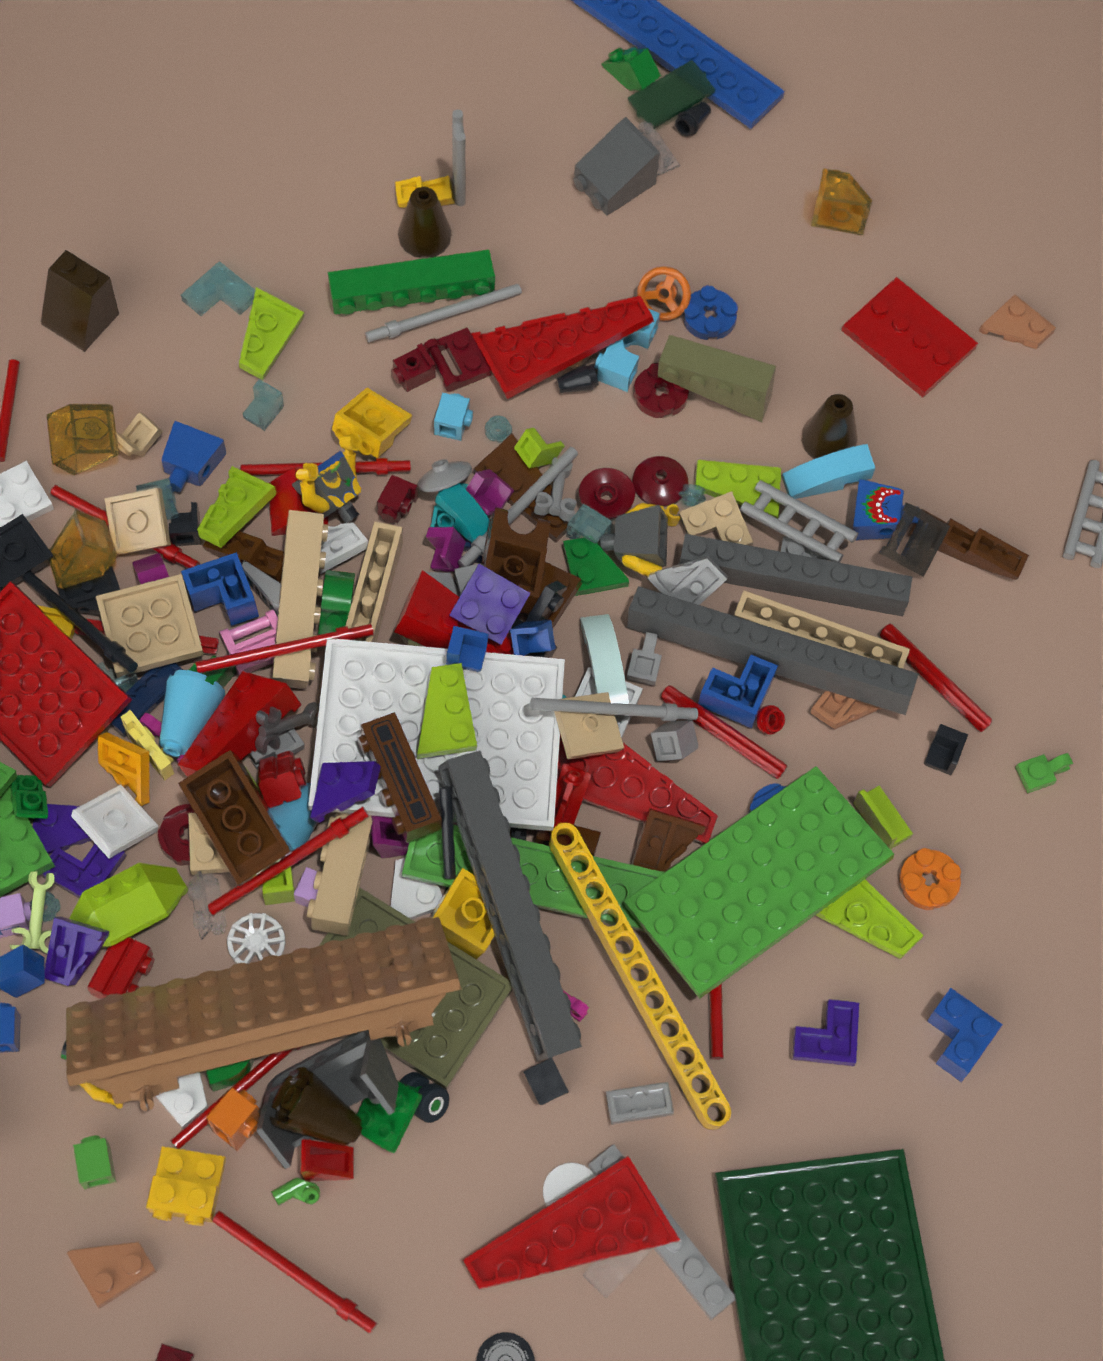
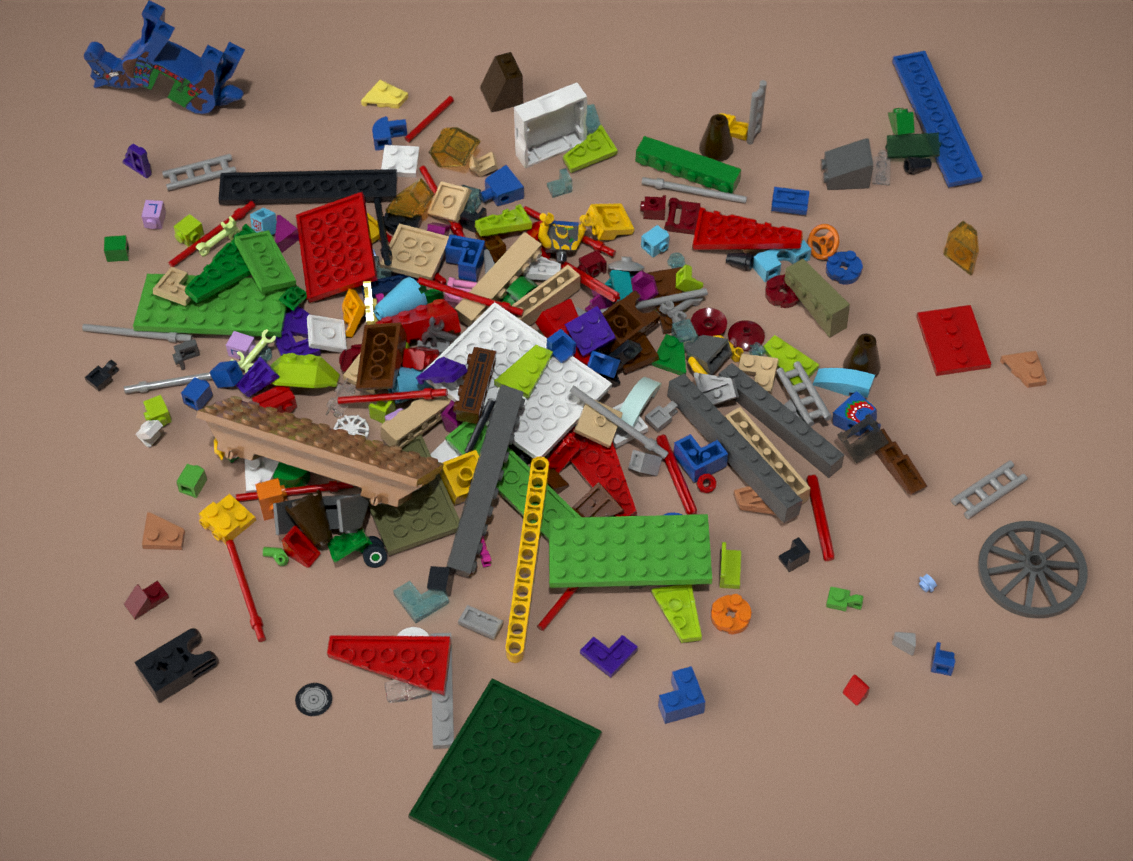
camera: 40 degrees right, 10 degrees down
(201, 329) = (550, 125): none -> white tile
(425, 528) = (595, 284): none -> red axle
(539, 1135) = (419, 605): none -> clear light blue plate
(577, 258) = (790, 200): none -> blue plate

